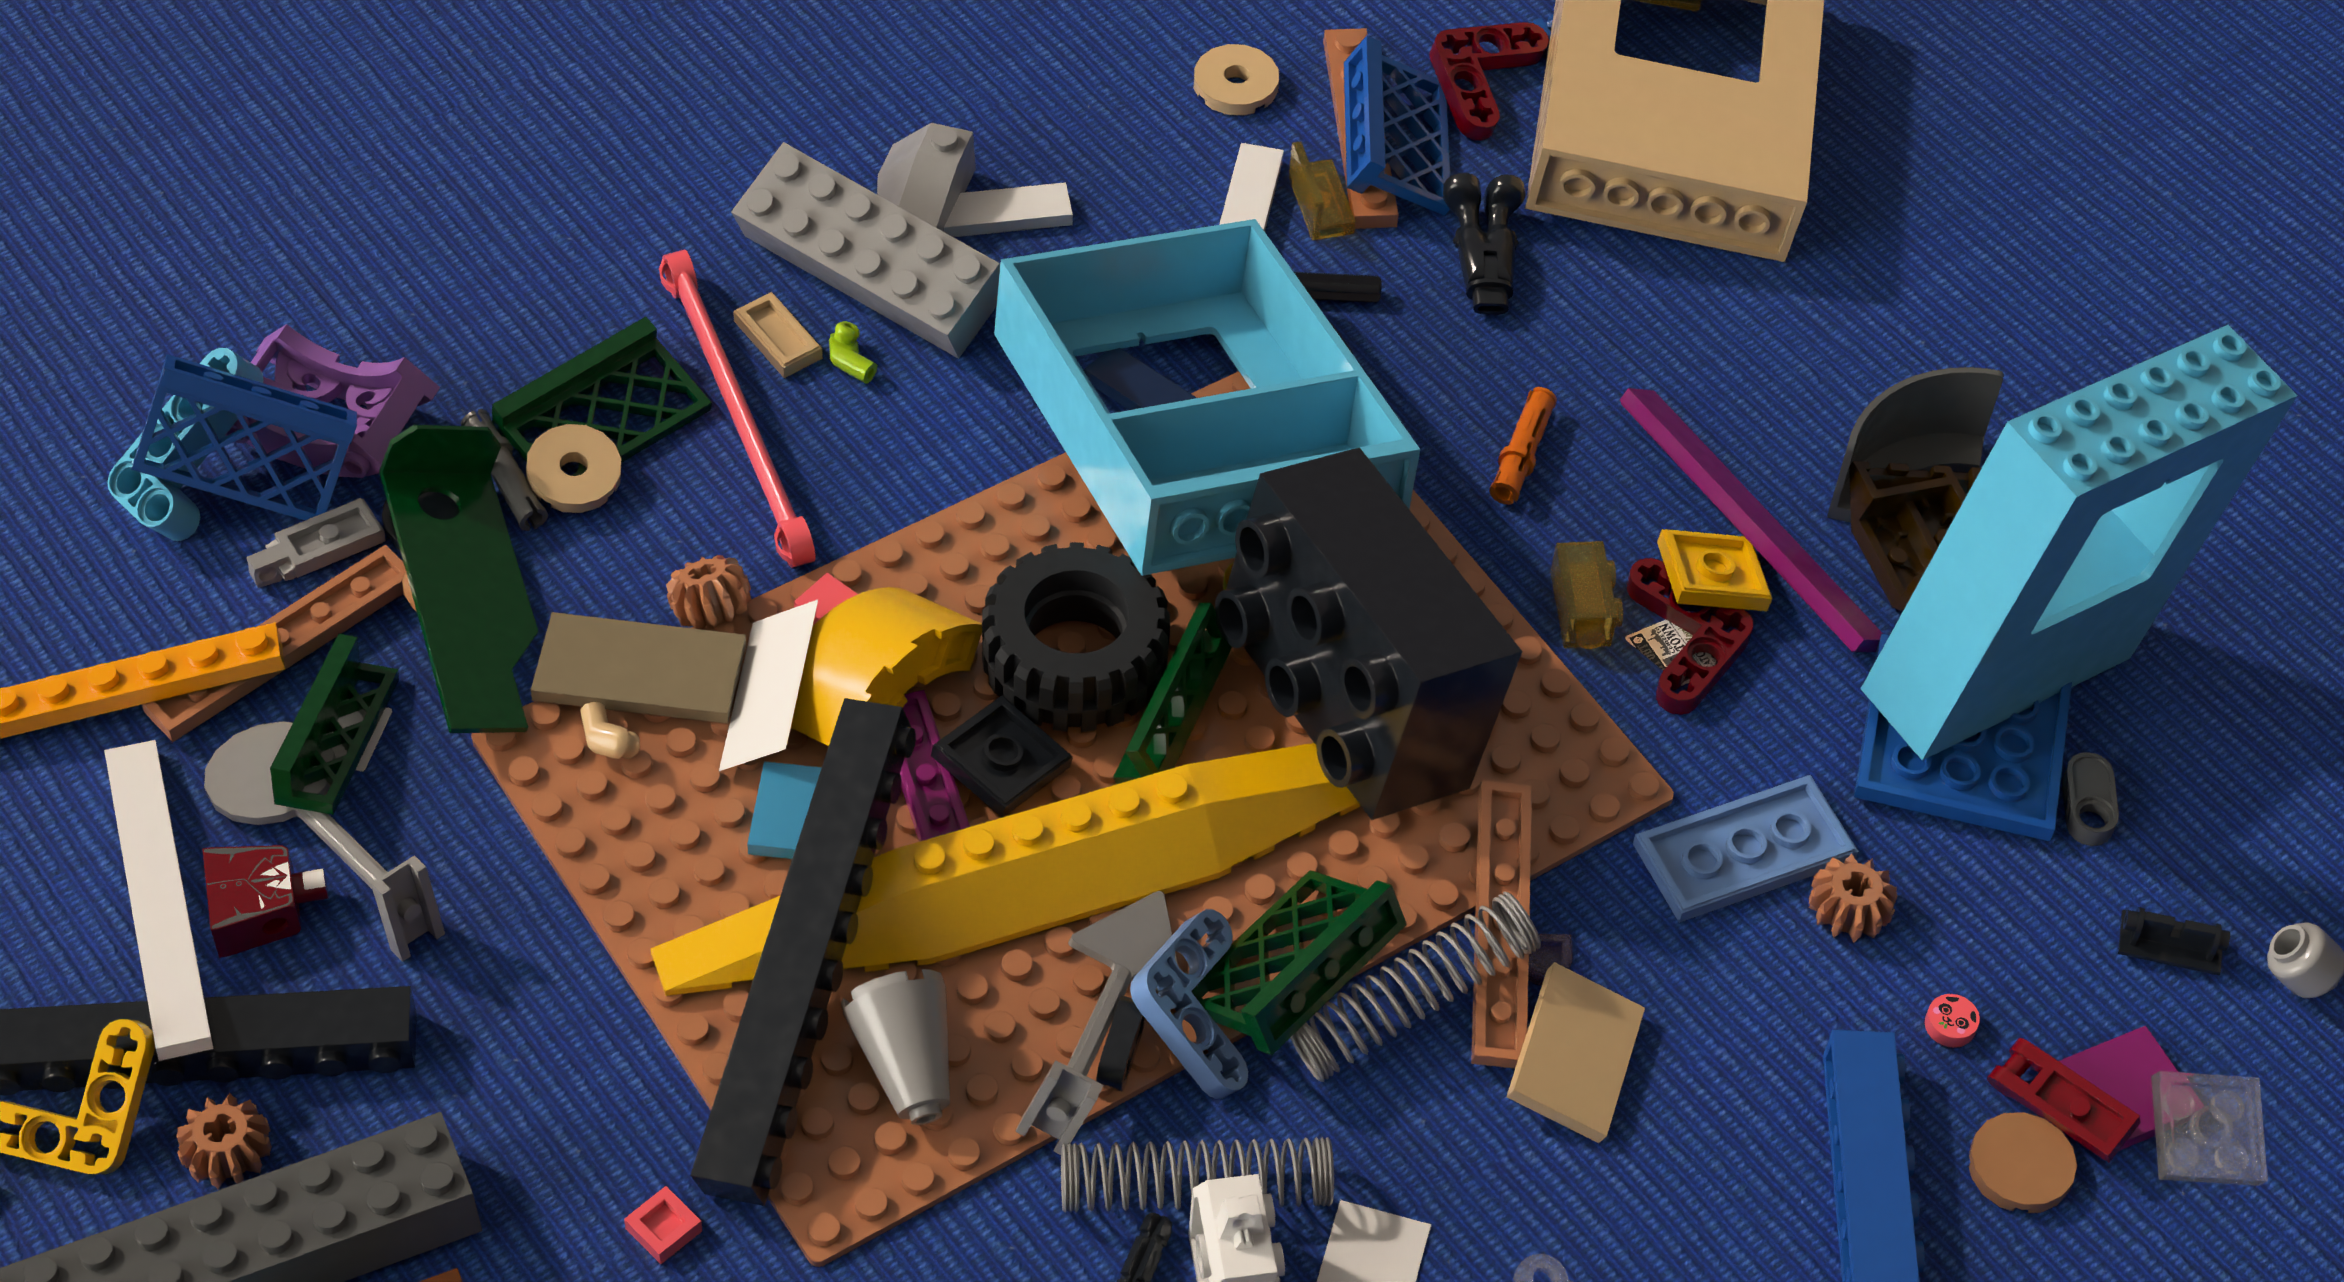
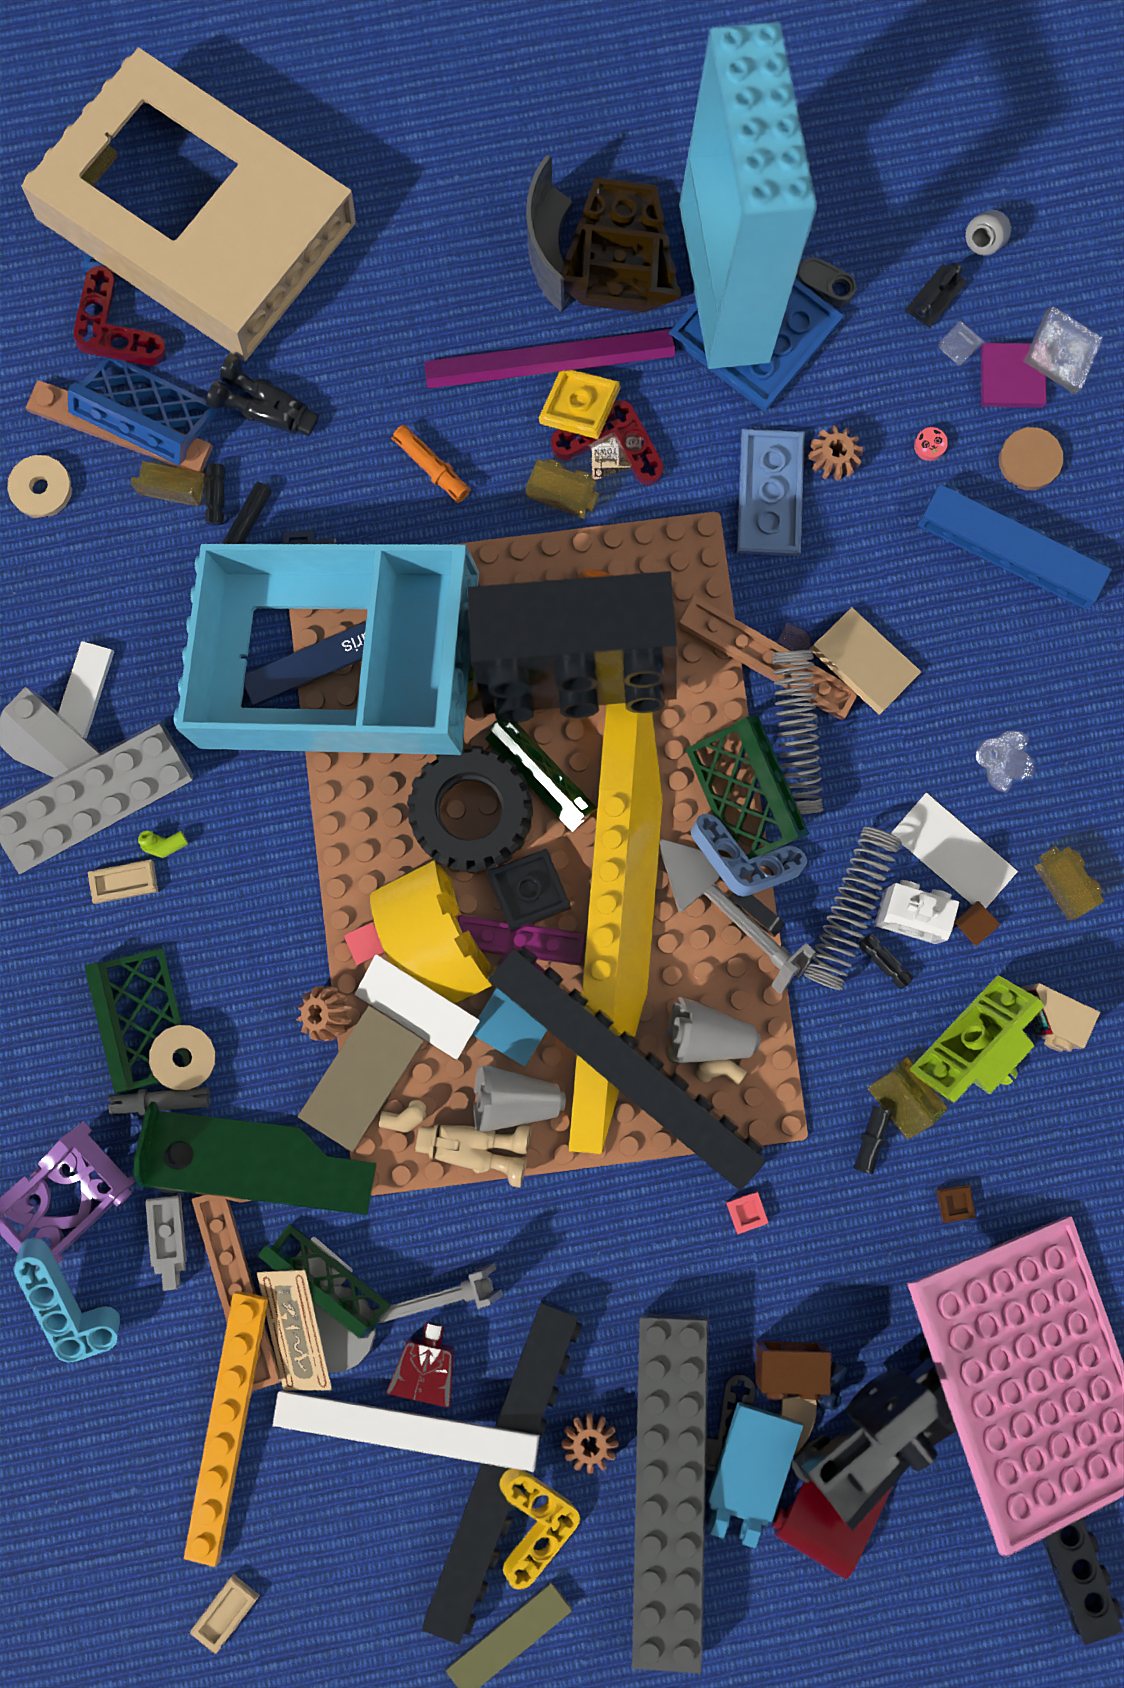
camera: 60 degrees left, 30 degrees up
(249, 715) = (294, 1330): none -> sticker
(251, 400) = (73, 1258): blue fence -> none
(601, 820) = (469, 1148): none -> tan piece
(692, 835) = (513, 1099): none -> light grey cone
(791, 530) = (58, 926): coral piece -> none
(859, 1076) = (716, 1068): none -> tan arm
(1252, 184) = (148, 529): white tile -> none
(1336, 245) = (215, 494): none -> black axle
(2065, 1100) = (1013, 415): dark red plate -> none
(2124, 1000) = (960, 343): none -> clear tile

